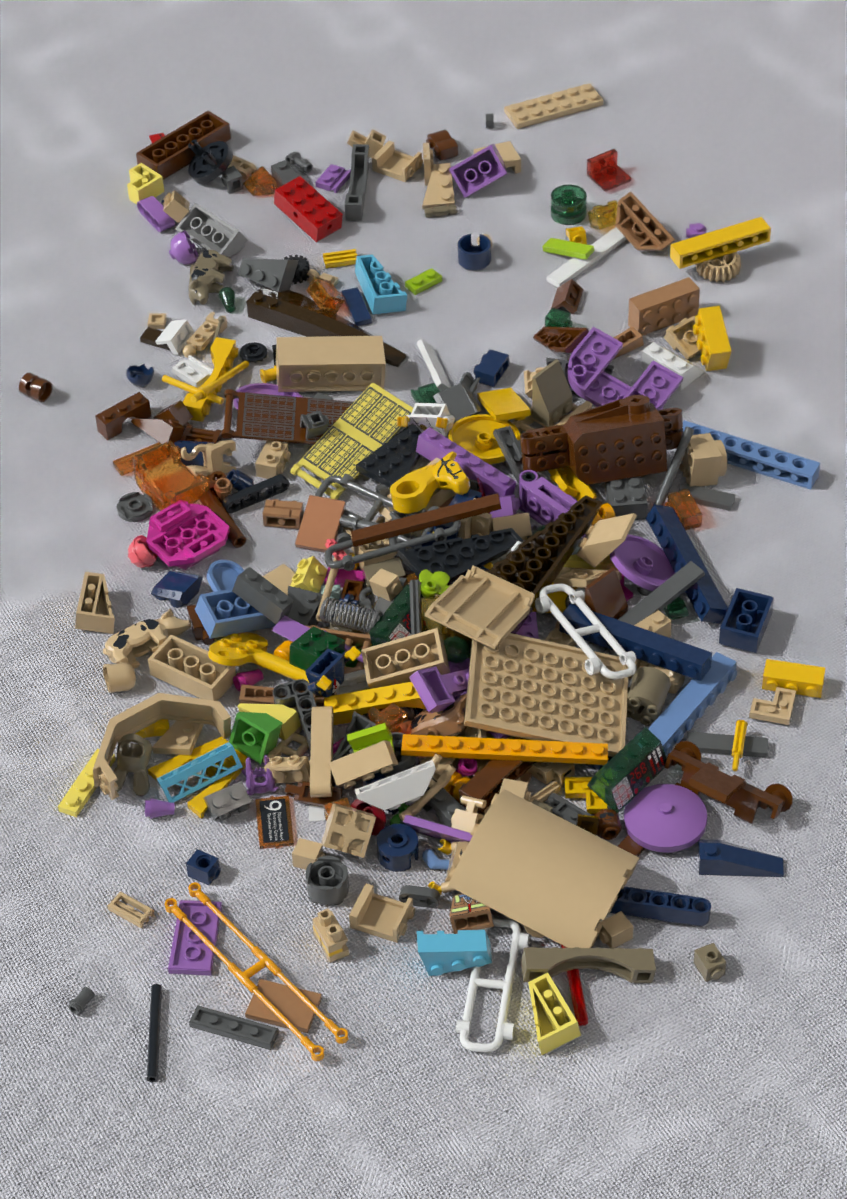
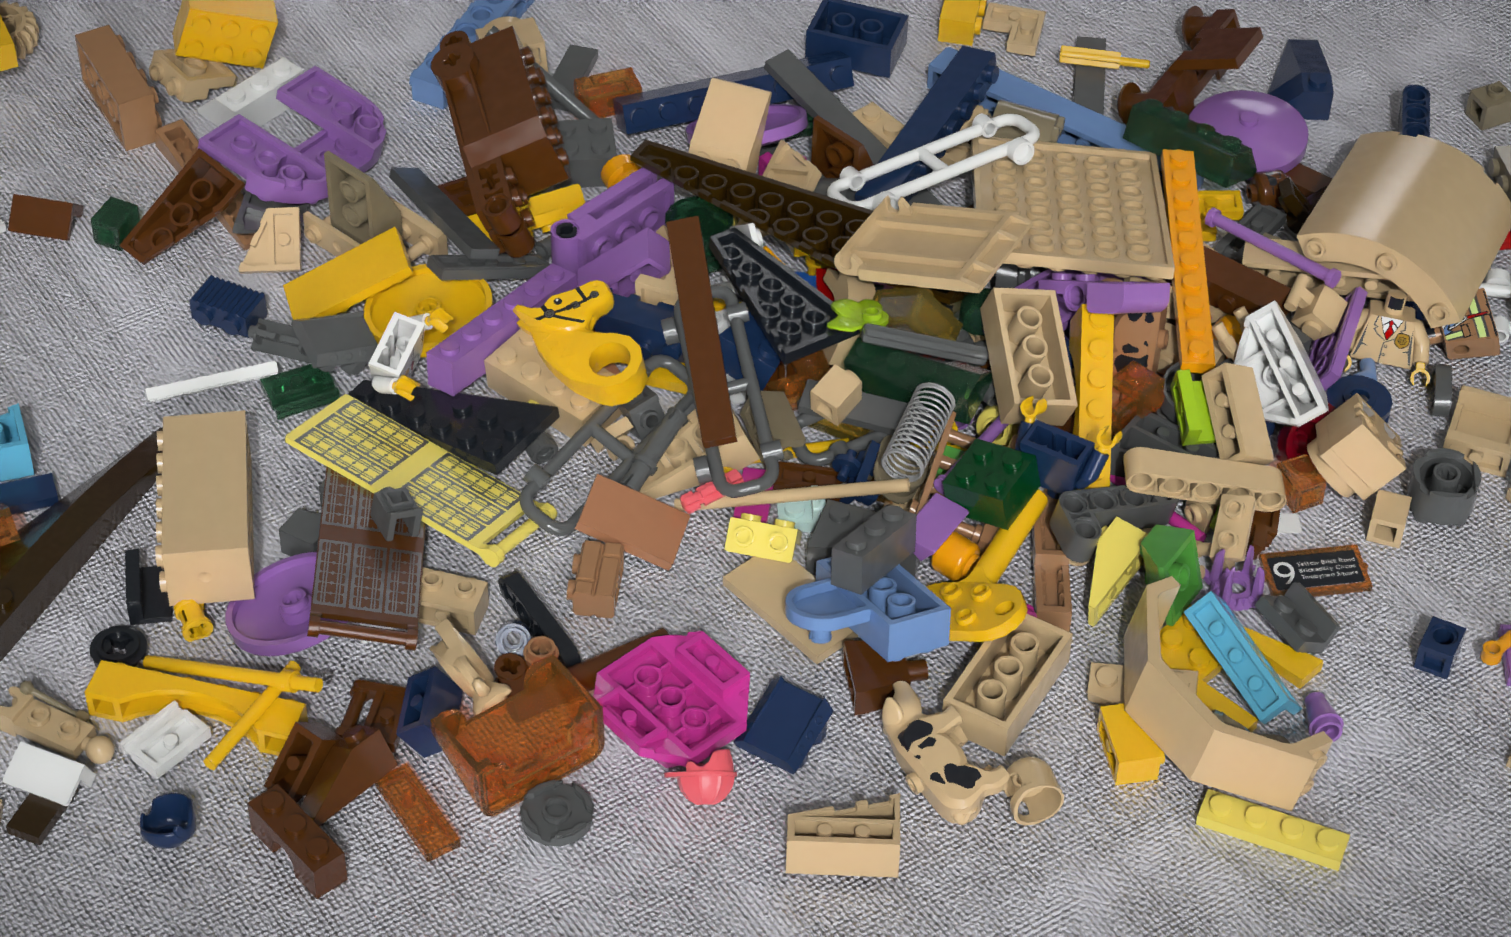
camera: 95 degrees left, 0 degrees up
(543, 766) = (1330, 277): none -> medium lavender bar

